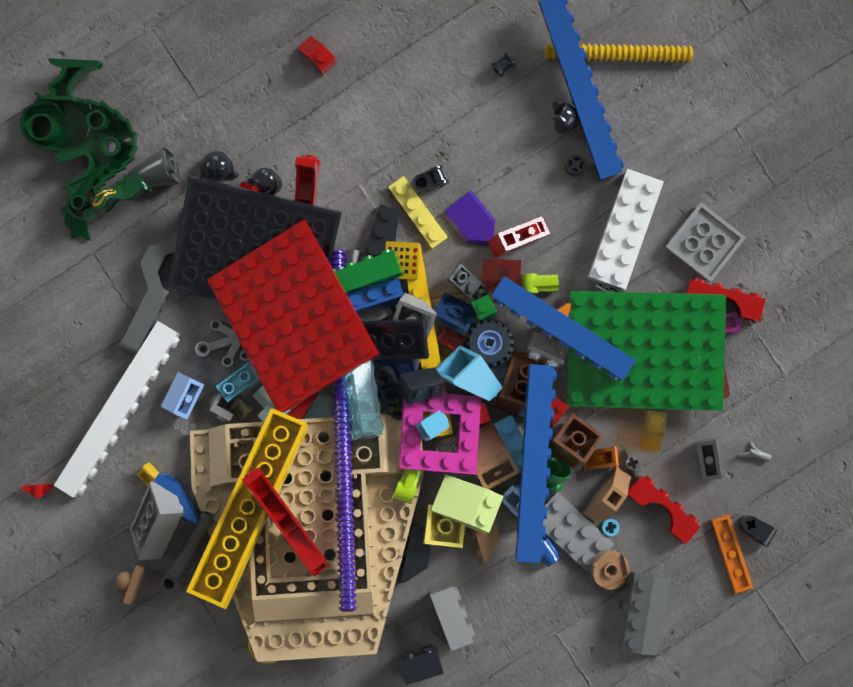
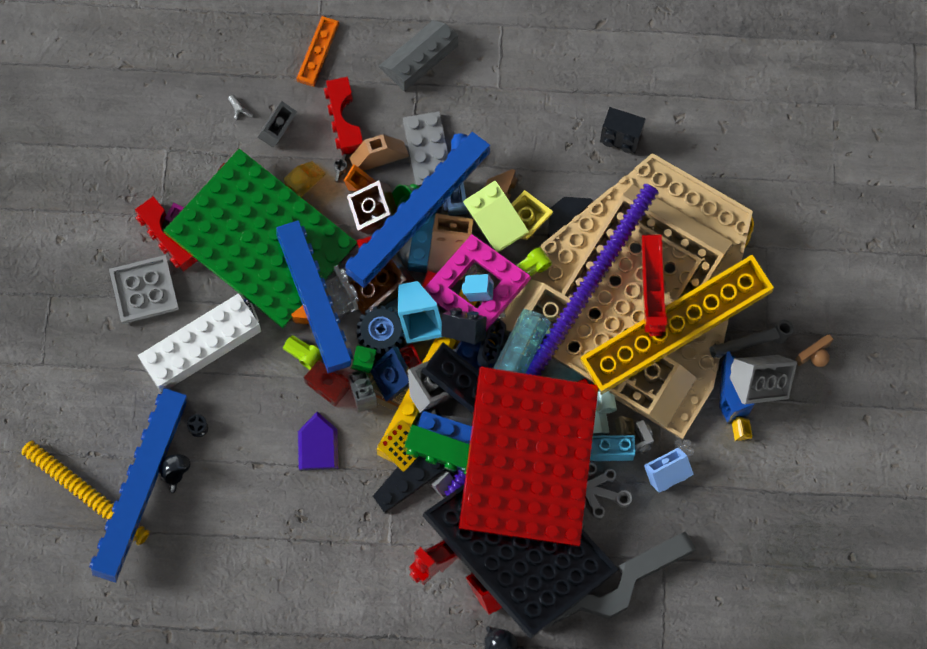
camera: 145 degrees left, 15 degrees down
(37, 490) = (846, 482): red piece -> none
(117, 409) = (731, 500): white brick -> none
(267, 180) = (466, 598): black hair -> none
(418, 212) = (357, 483): light yellow plate -> none
(431, 179) = (322, 500): black piece -> none
(452, 616) = (570, 148): light grey brick -> none
(503, 64) = (188, 553): black bush -> none
(518, 237) = (291, 400): slope -> none
(600, 564) = (424, 108): medium nougat plate -> none
(605, 524) = (393, 127): medium azure bush -> none
(759, 531) = (284, 53): black piece -> none

